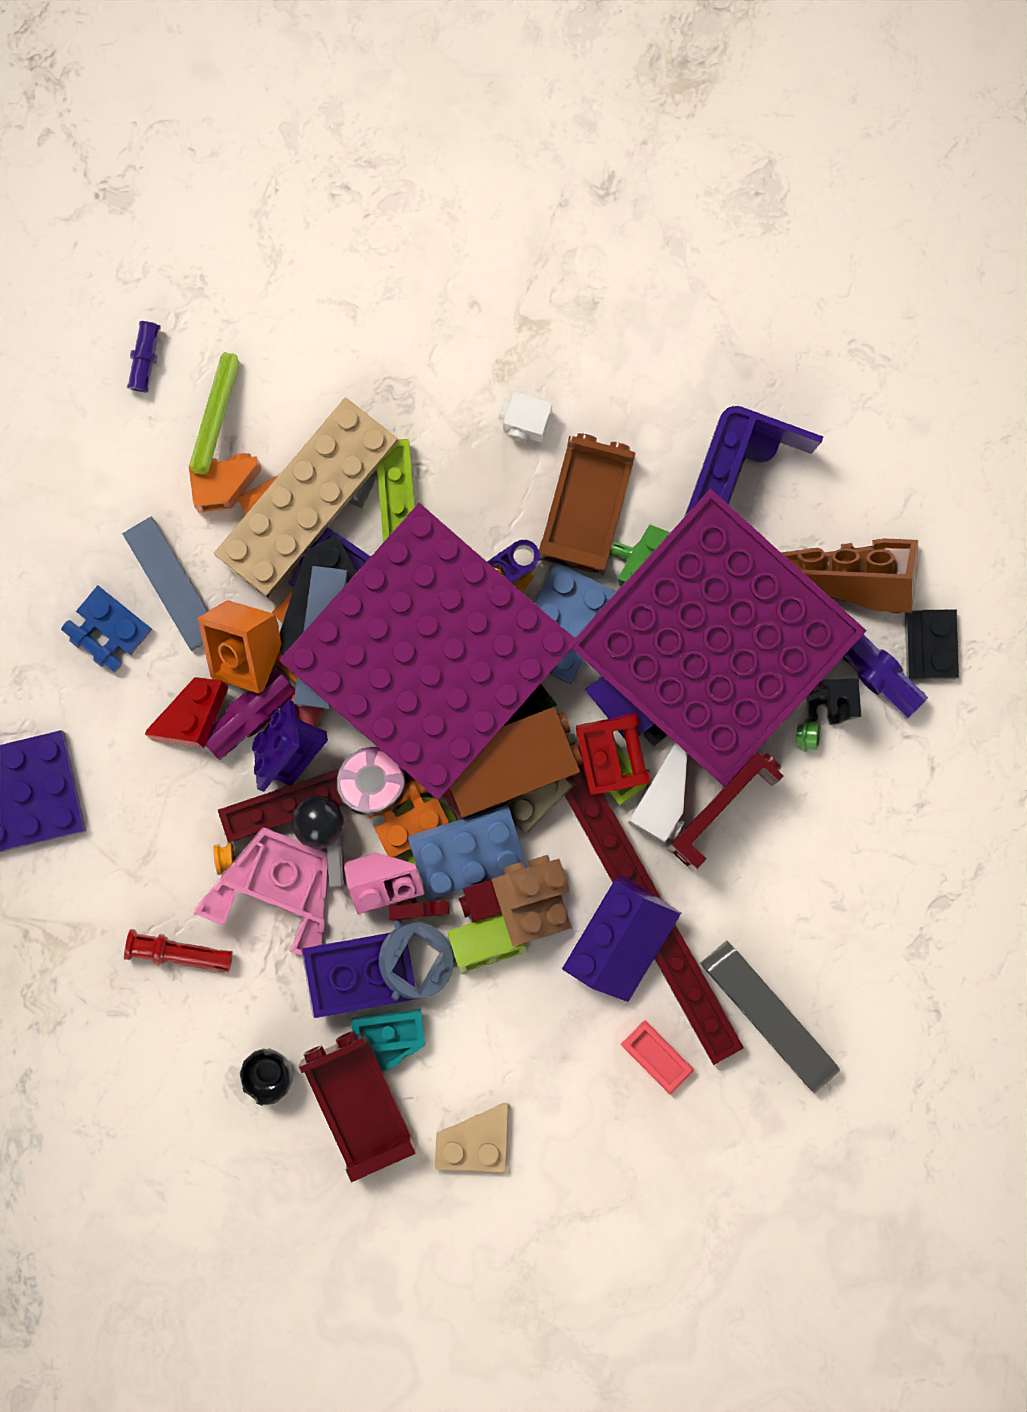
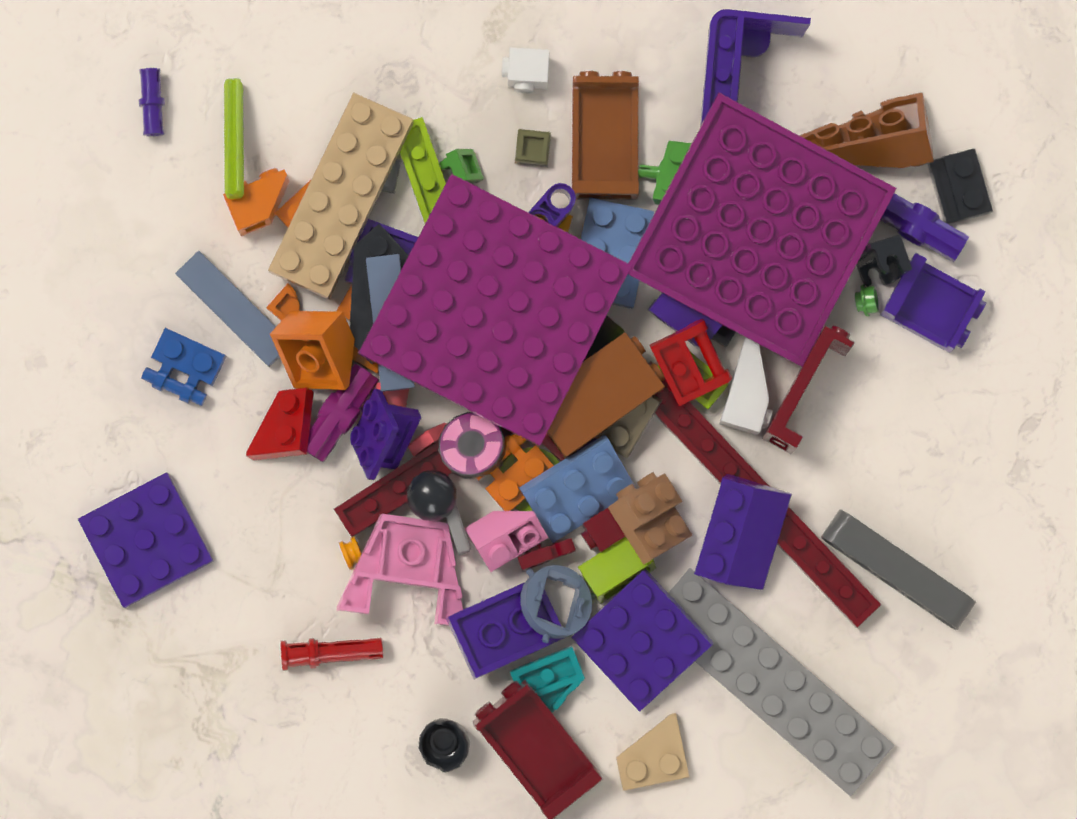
camera: 15 degrees left, 0 degrees up
(224, 589) = (284, 303): none -> orange tile
(328, 763) = (426, 440): none -> coral tile
(437, 498) = (463, 165): none -> bright green tile
(493, 1022) = (642, 640): none -> dark purple plate
(511, 497) = (532, 147): none -> olive tile
(612, 1097) = (781, 688): none -> light grey plate
(657, 1057) = (802, 634): coral tile -> none
(875, 757) = (934, 305): none -> dark purple panel

